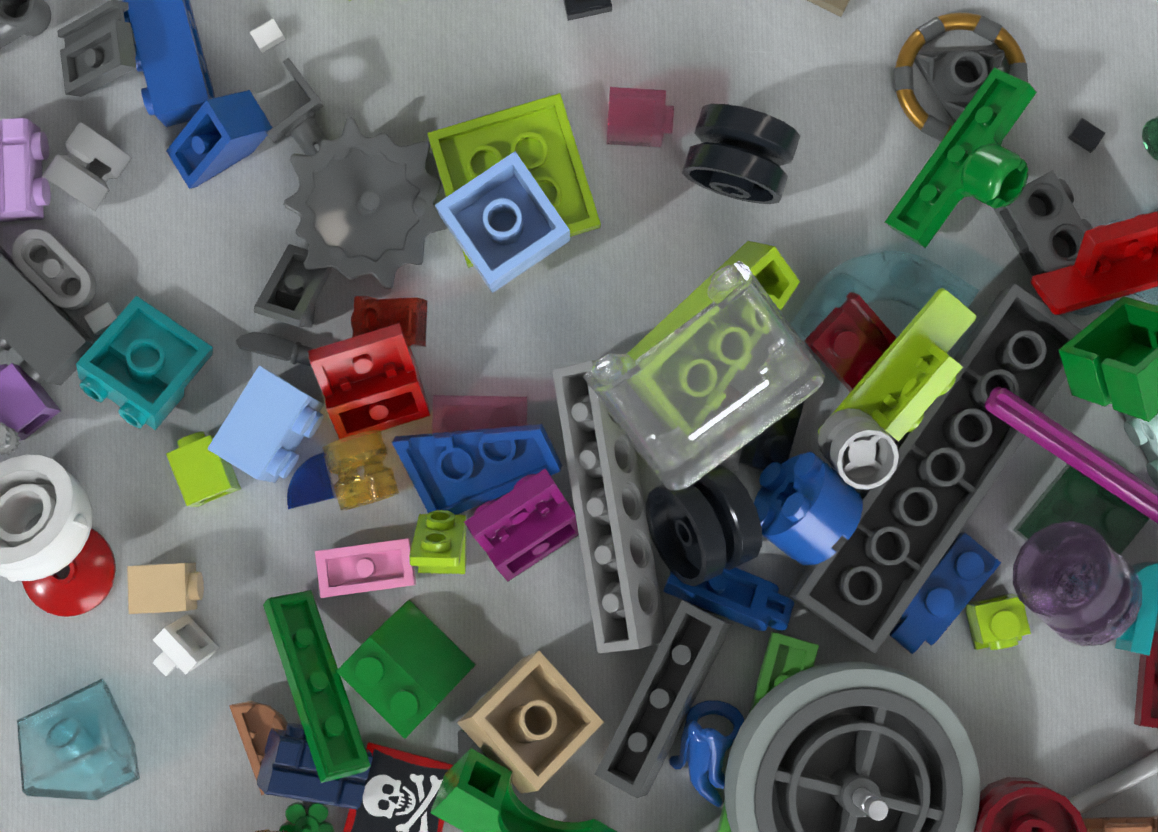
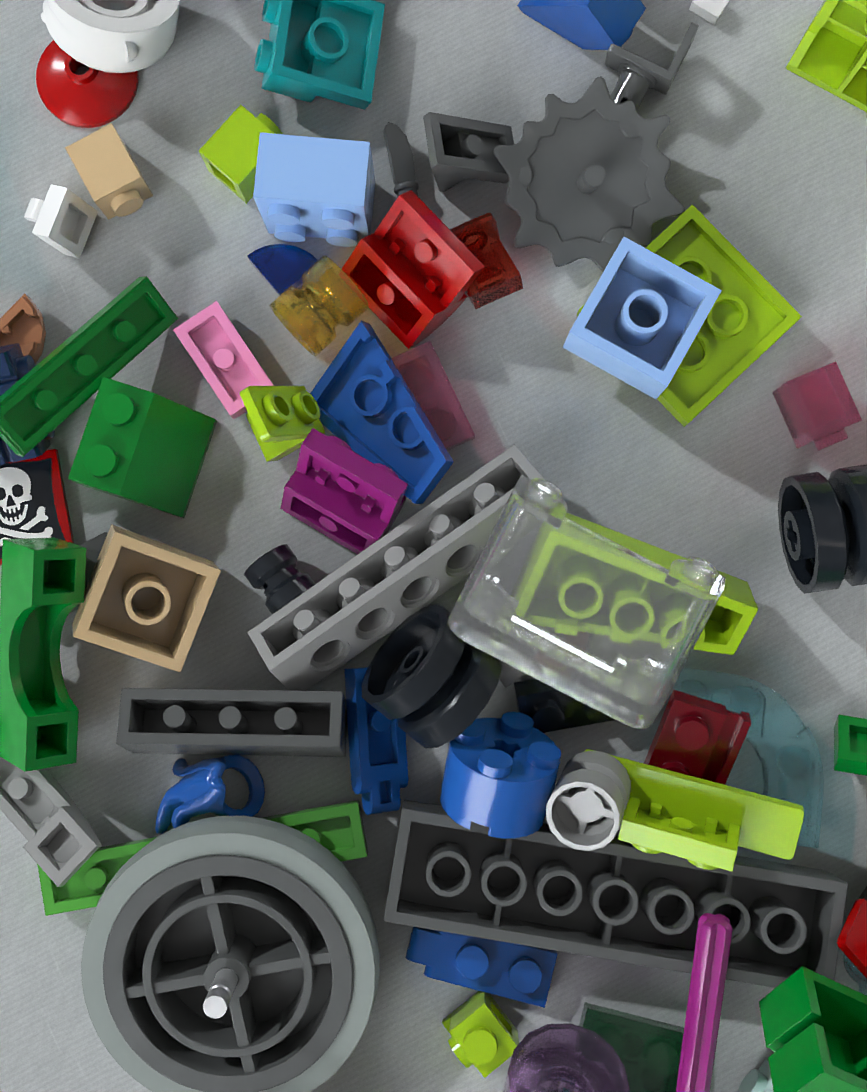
camera: 65 degrees right, 0 degrees up
(566, 608) = (278, 576): none -> black wheel

